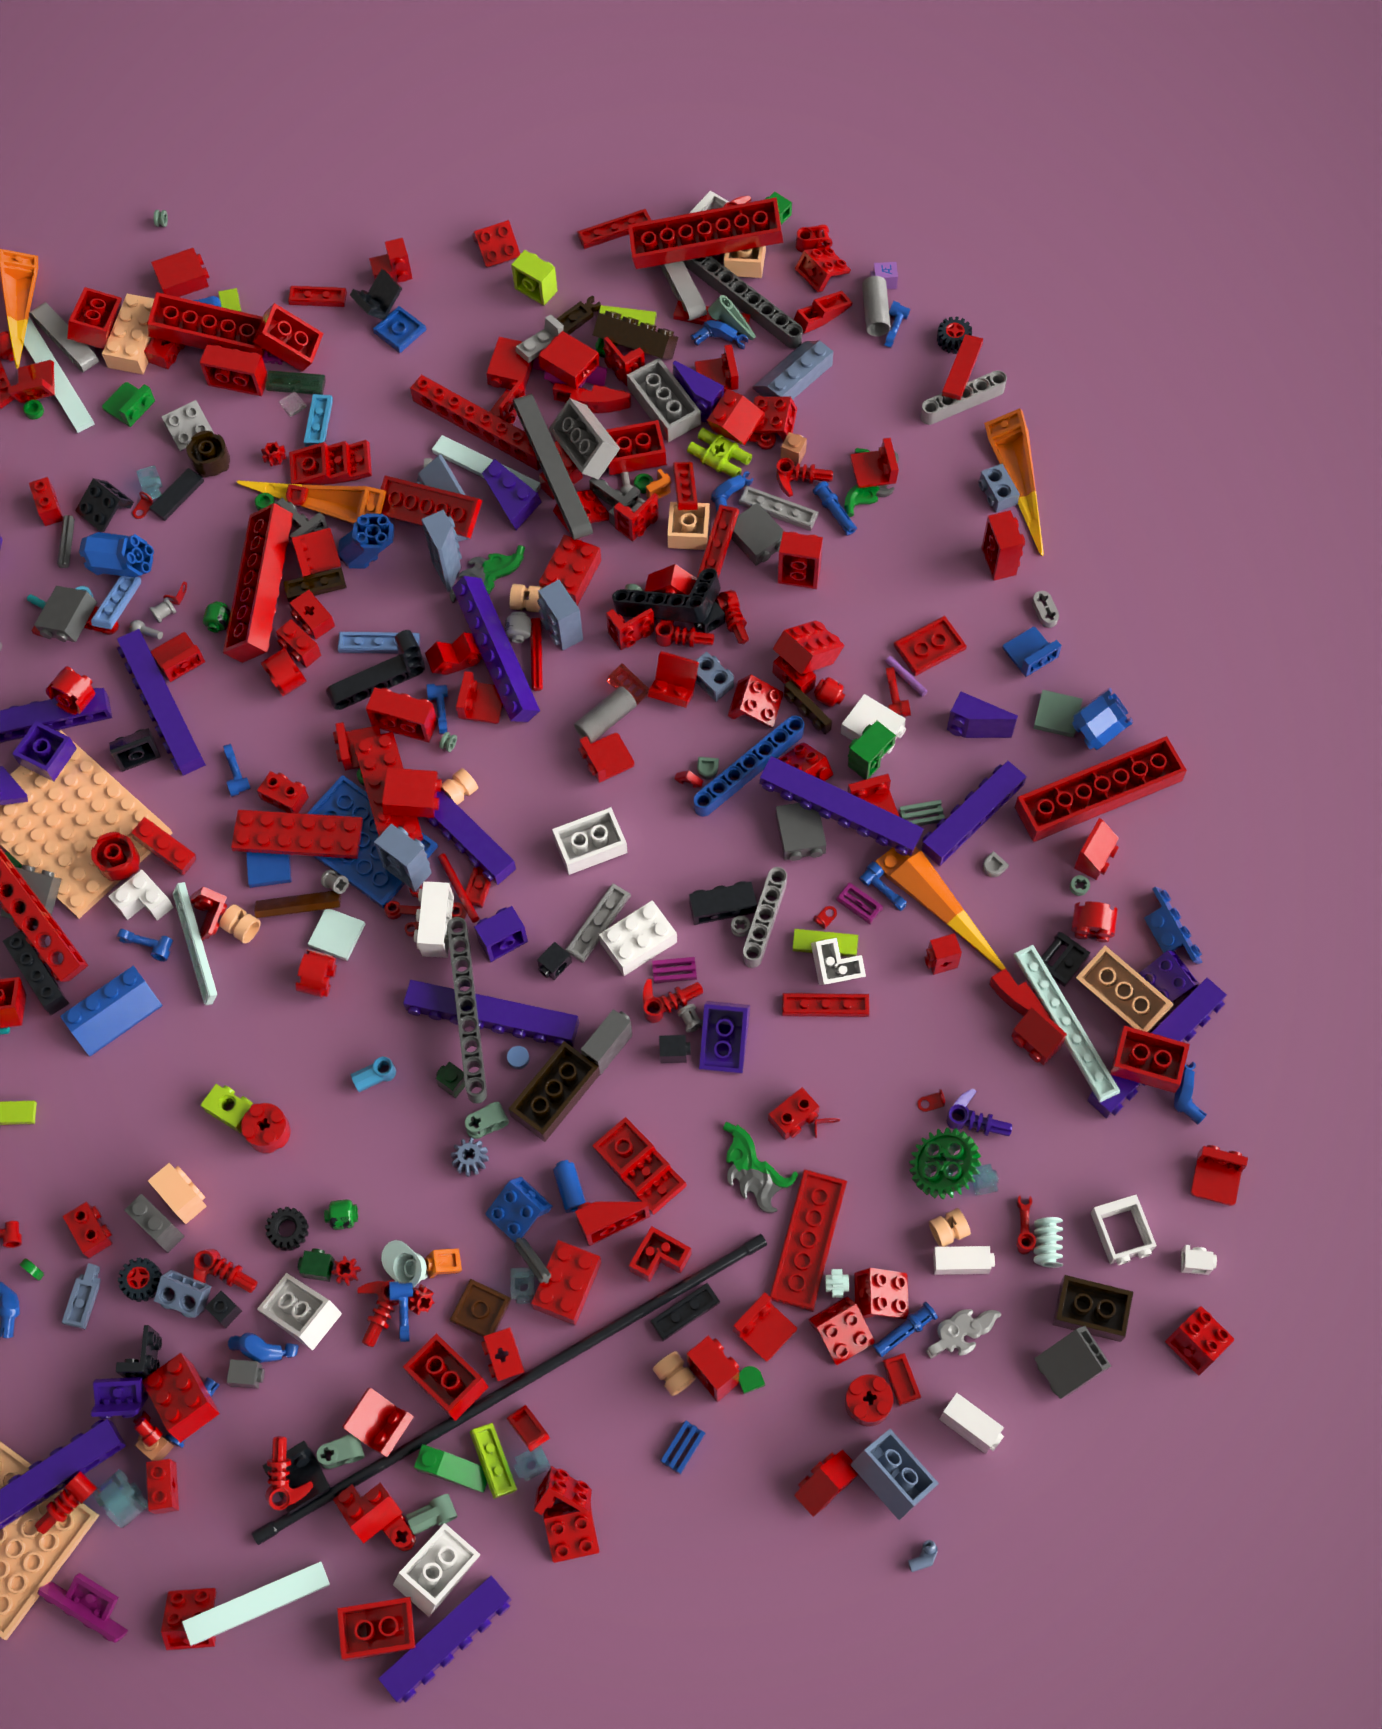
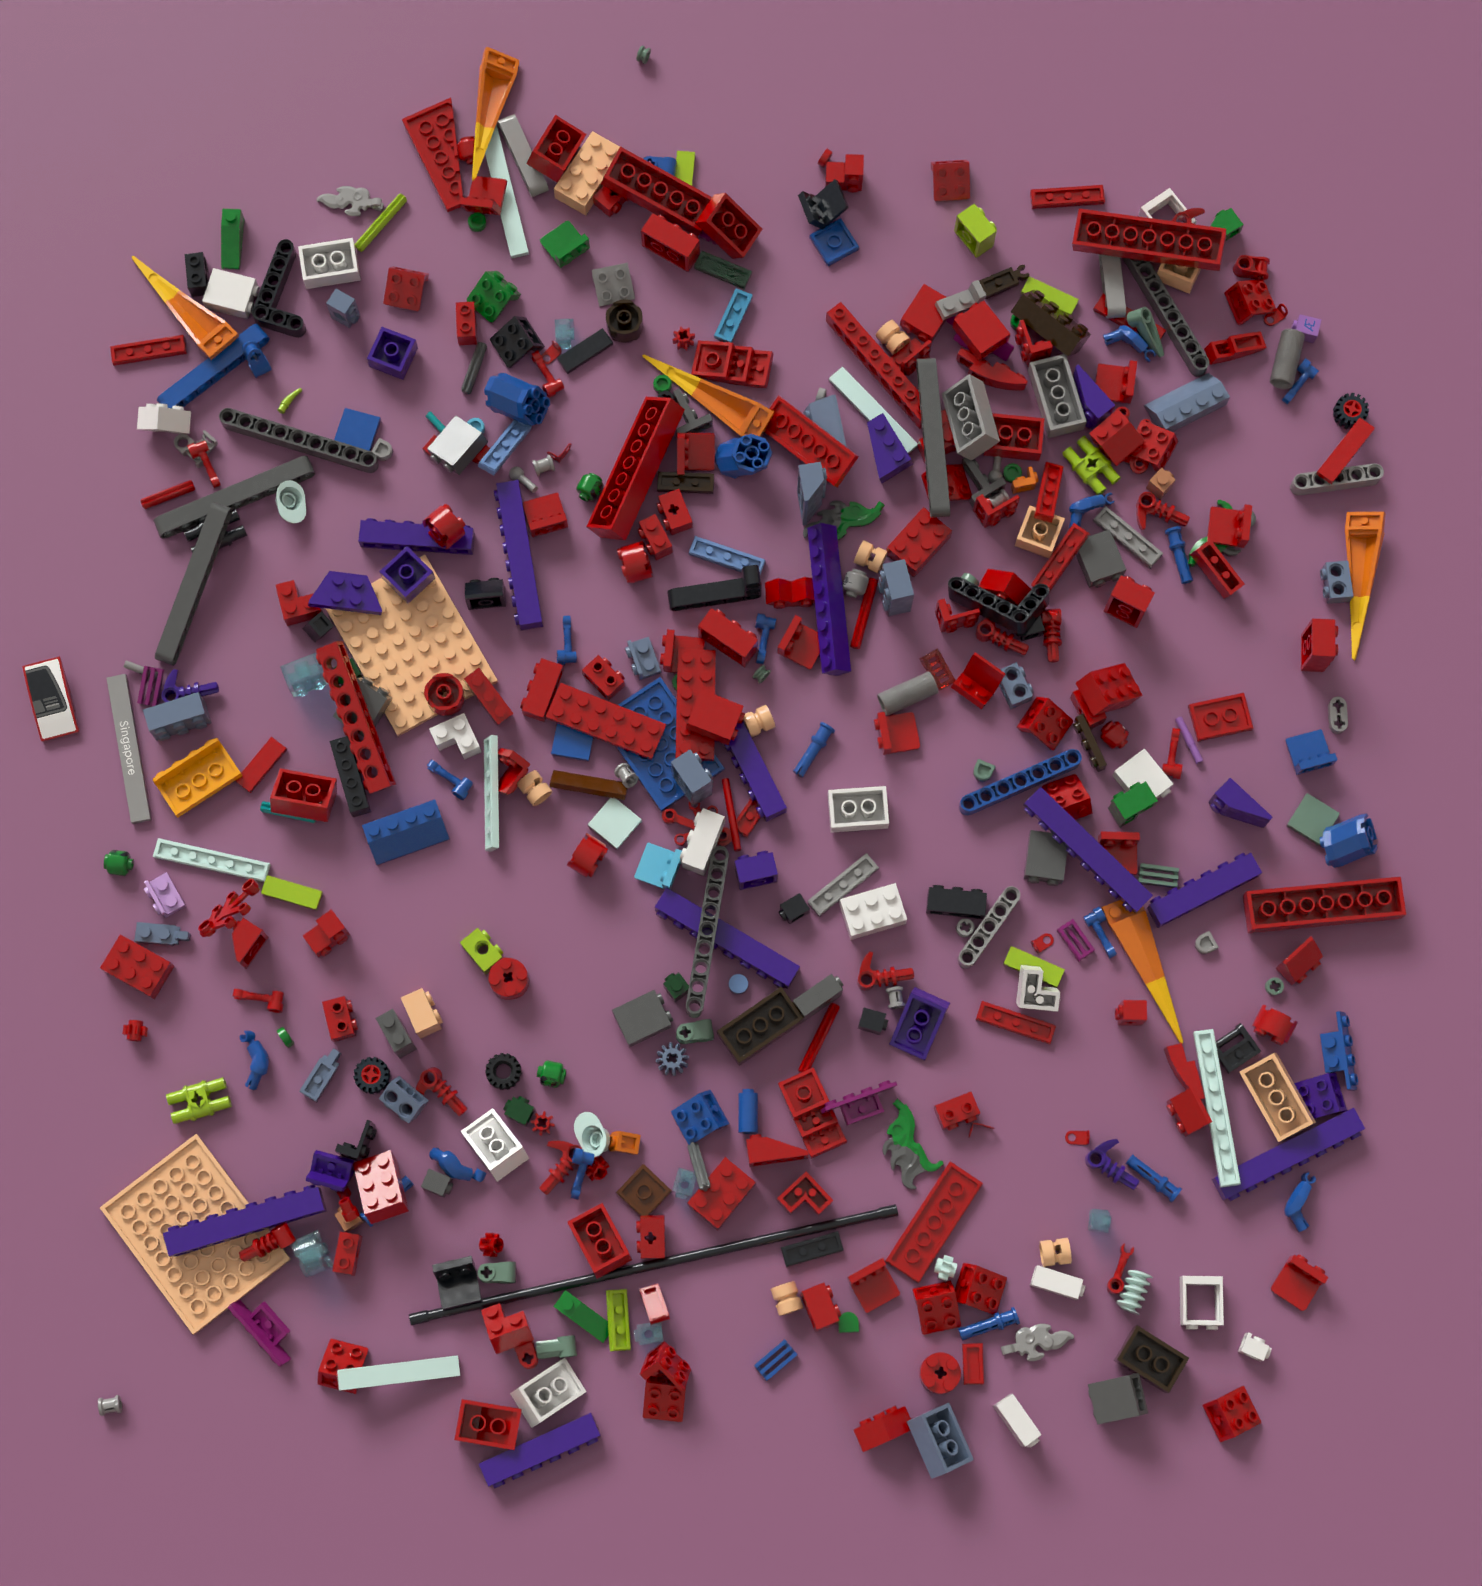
camera: 15 degrees right, 10 degrees up
(51, 1142) = (326, 934): none -> red brick
(66, 468) = (492, 295): none -> green bracket
(151, 534) = (552, 385): none -> red brick
(181, 273) = (647, 121): red brick -> none
(220, 824) = (541, 689): none -> red brick
(223, 1309) = (433, 1123): black brick -> none
(278, 1478) = (442, 1283): red piece -> none
(292, 404) = (714, 290): clear tile -> none
(296, 494) = (693, 387): red tile -> none
(317, 296) = (767, 183): red tile -> none
(320, 763) = (643, 657): none -> sand blue bracket
(324, 1422) = (491, 1244): none -> red gear
(367, 253) = (825, 158): none -> red tile
(371, 1074) = (609, 960): dark azure piece -> none
(377, 1422) = (534, 1259): bracket -> none
(396, 963) = (658, 866): none -> medium azure bracket
(424, 1123) = (642, 1018): none -> dark grey brick
(483, 394) = (892, 336): none -> light nougat wheel
(527, 790) = (818, 742): none -> blue pin
(622, 1084) = (819, 1037): none -> red axle
(674, 962) = (897, 949): magenta tile -> none
(689, 777) = (957, 773): red tile -> none
(689, 1140) = (861, 1106): none -> magenta bracket
(854, 273) = (1277, 316): none -> red piece
(877, 507) = (1217, 569): none -> red brick
(926, 1557) = (944, 1513): sand blue arm -> none
(945, 1163) = (1077, 1181): green gear -> none
(1038, 1122) = (1160, 1187): none -> blue pin
(1149, 1059) = (1275, 1166): red brick -> none

